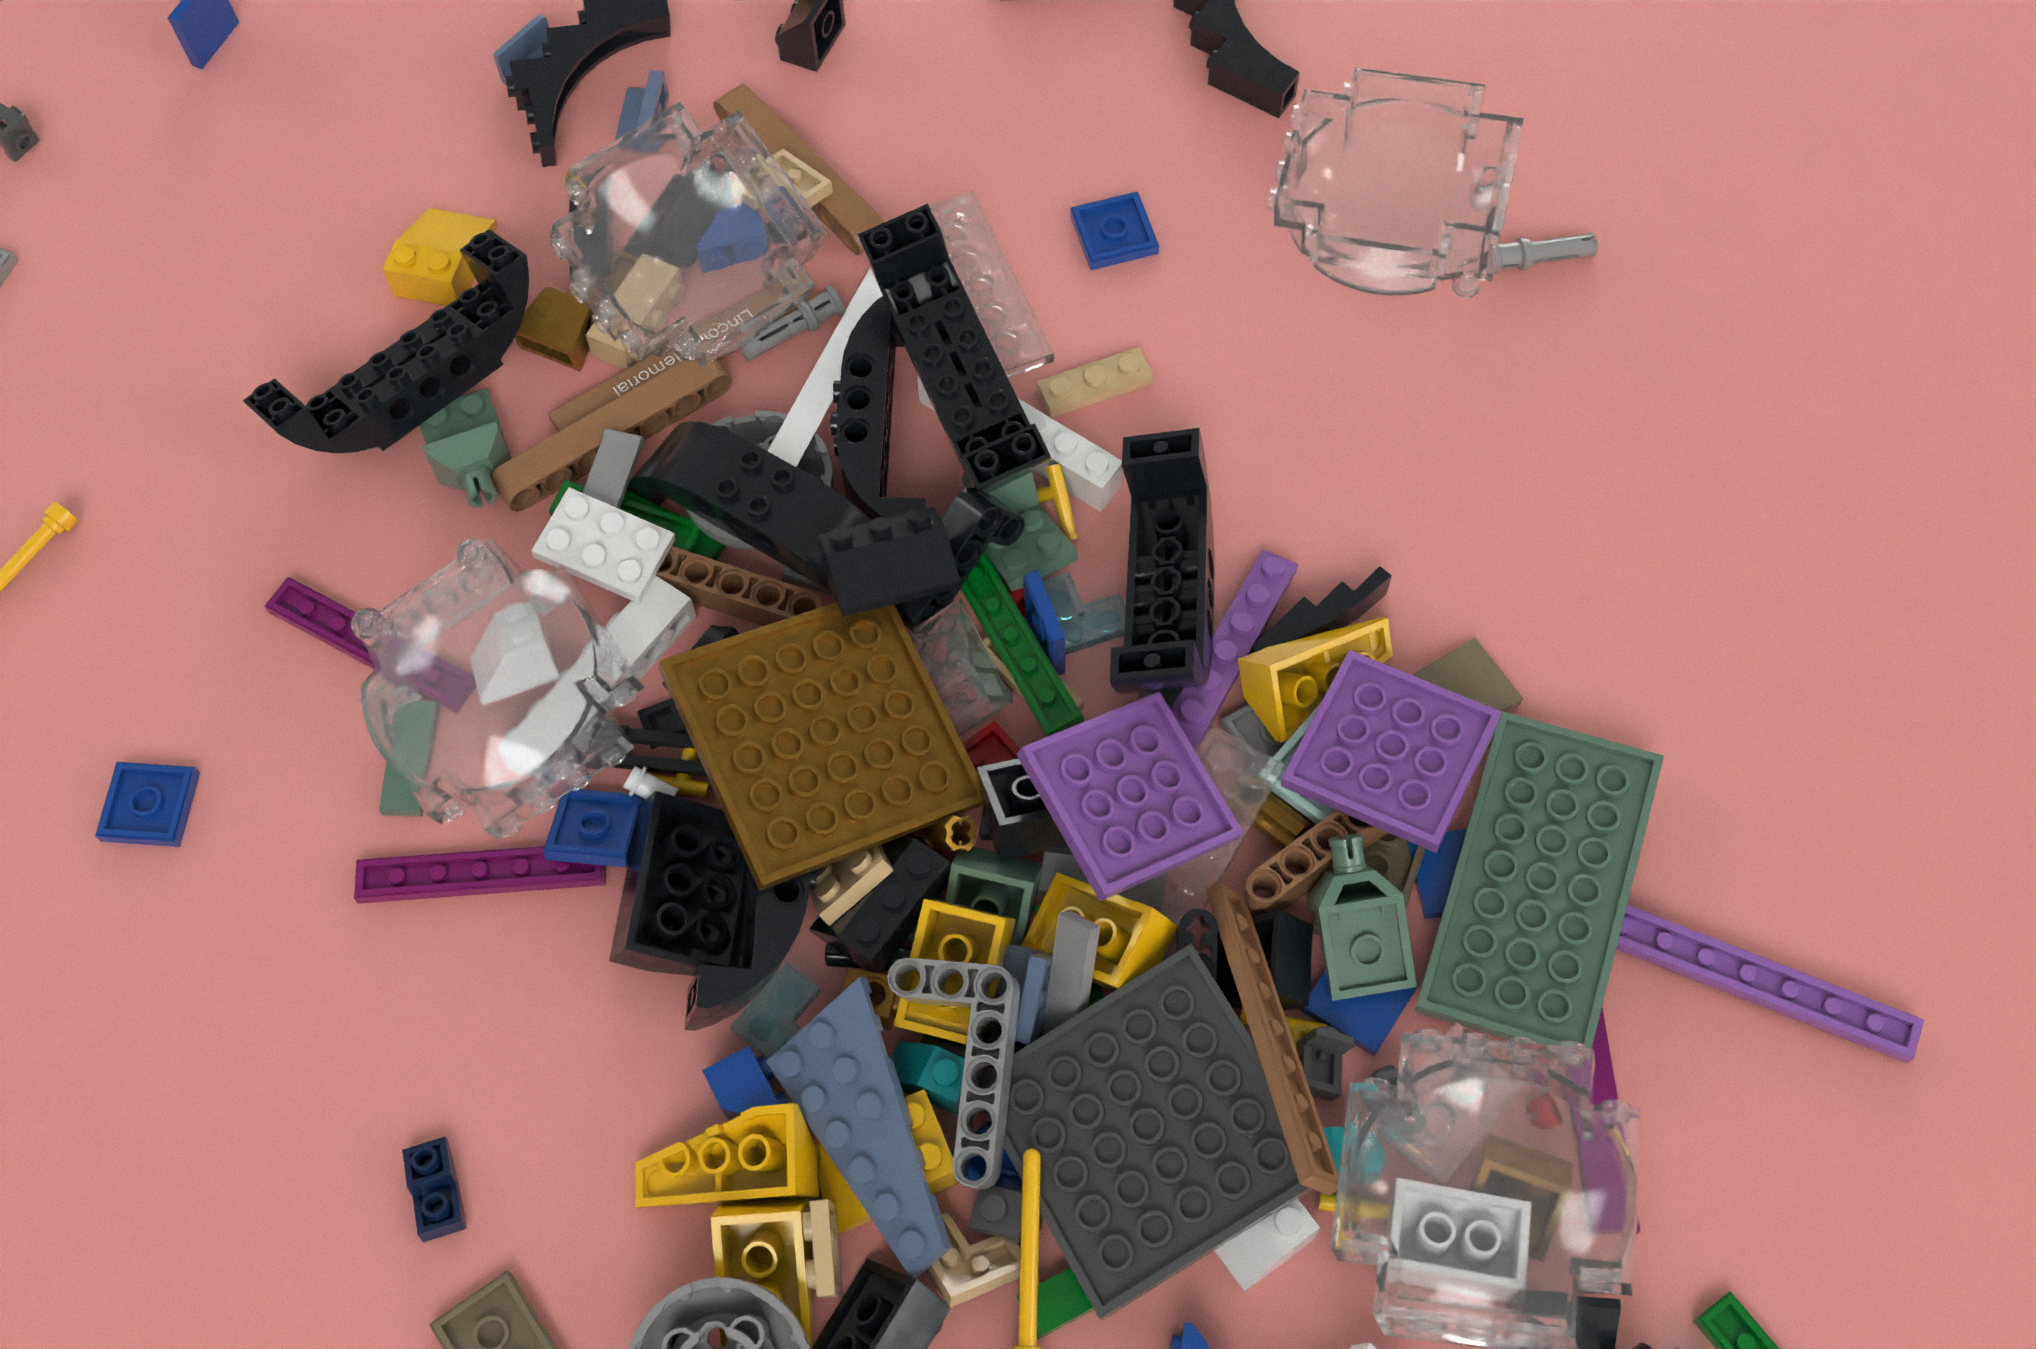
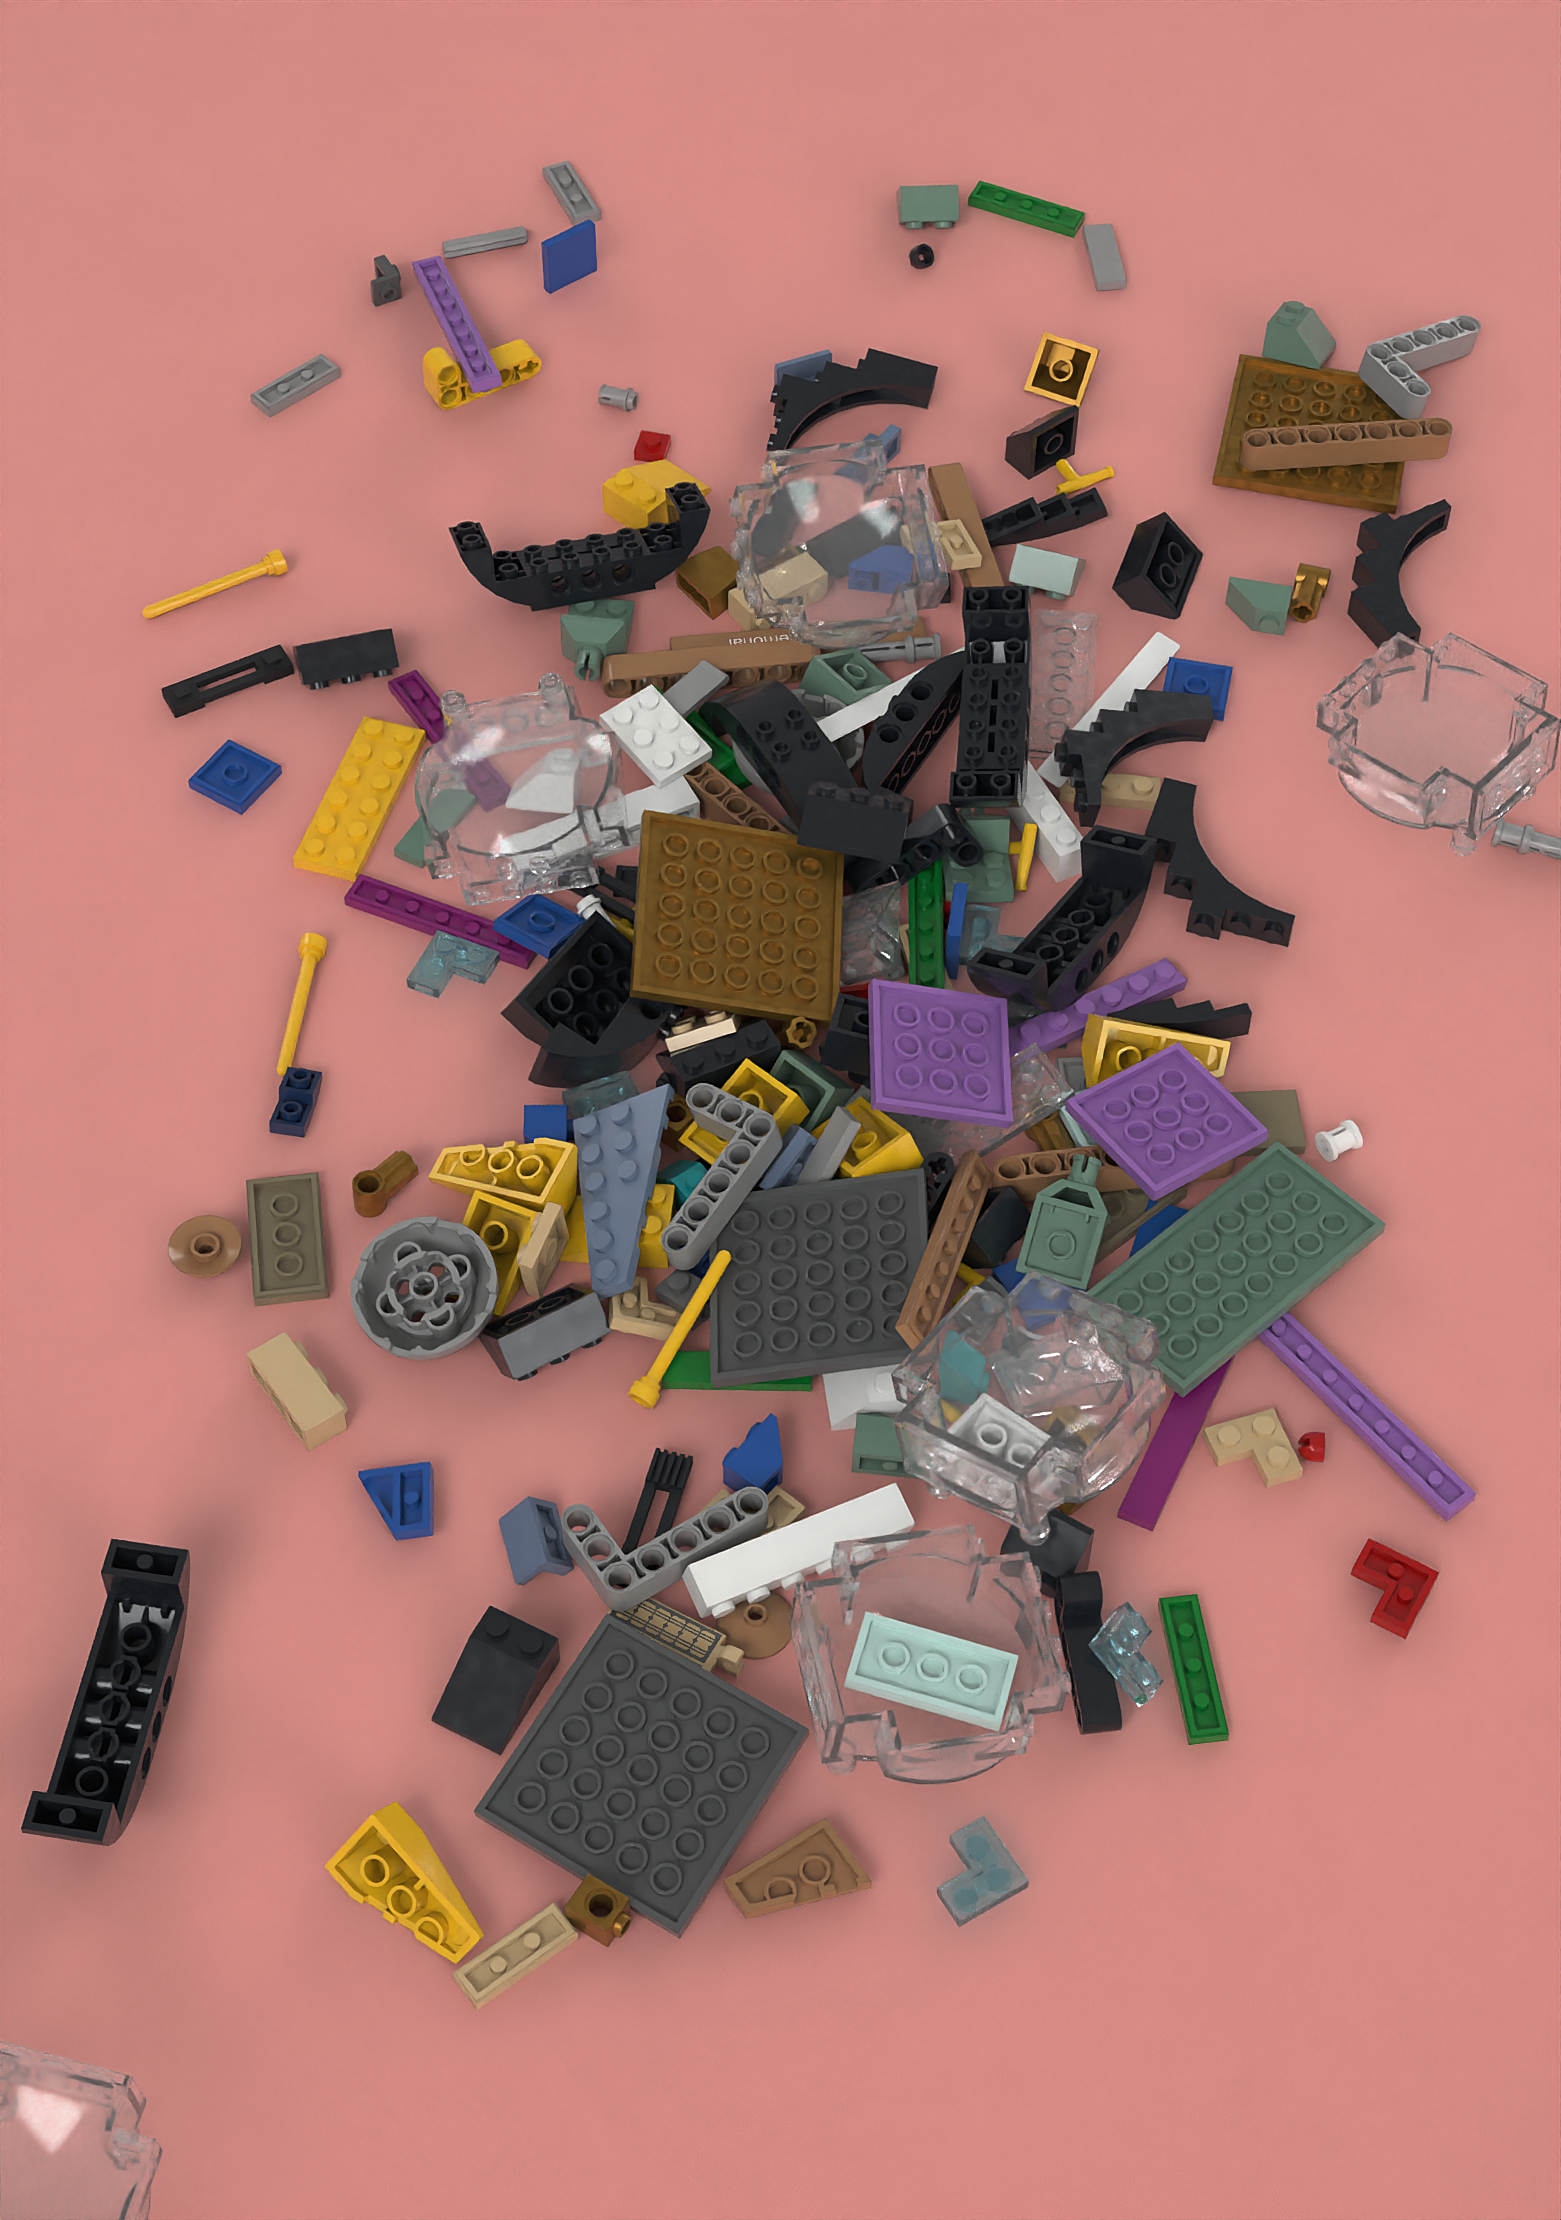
camera: 25 degrees right, 10 degrees down
(38, 731) = (269, 666): none -> black container
(99, 39) = (484, 242): none -> light grey axle
(121, 149) = (457, 324): none -> medium lavender plate
(174, 196) = (449, 386): none -> yellow beam
(201, 599) = (346, 658): none -> black slope
(306, 766) = (359, 799): none -> yellow plate
(341, 158) = (618, 397): none -> light grey pin
(351, 985) = (311, 950): none -> yellow piece
(407, 199) = (652, 446): none -> red plate
(508, 916) = (451, 956): none -> clear light blue plate
(591, 1243) = (376, 1186): none -> pearl gold piece
(762, 381) = (844, 676): none -> sand green slope
(860, 108) = (1035, 521): none -> black slope
(865, 55) = (1074, 482): none -> yellow piece
(896, 166) = (1047, 571): none -> slope
(1003, 115) = (1158, 568): none -> black slope
(1045, 296) = (1135, 676): none -> white sticker
(1093, 291) = (1145, 722): none -> black arch
(1126, 111) = (1259, 604): none -> sand green slope
(1161, 70) = (1308, 589): none -> pearl gold piece
(1235, 443) = (1192, 876): none -> black arch
(1318, 1289) = (877, 1447): none -> sand green slope
(1550, 676) = (1338, 1140): none -> white bush
(1683, 1065) = (1255, 1437): none -> tan plate
(1738, 1046) = (1312, 1446): none -> red hinge
(1921, 1163) = (1404, 1585): none -> red plate

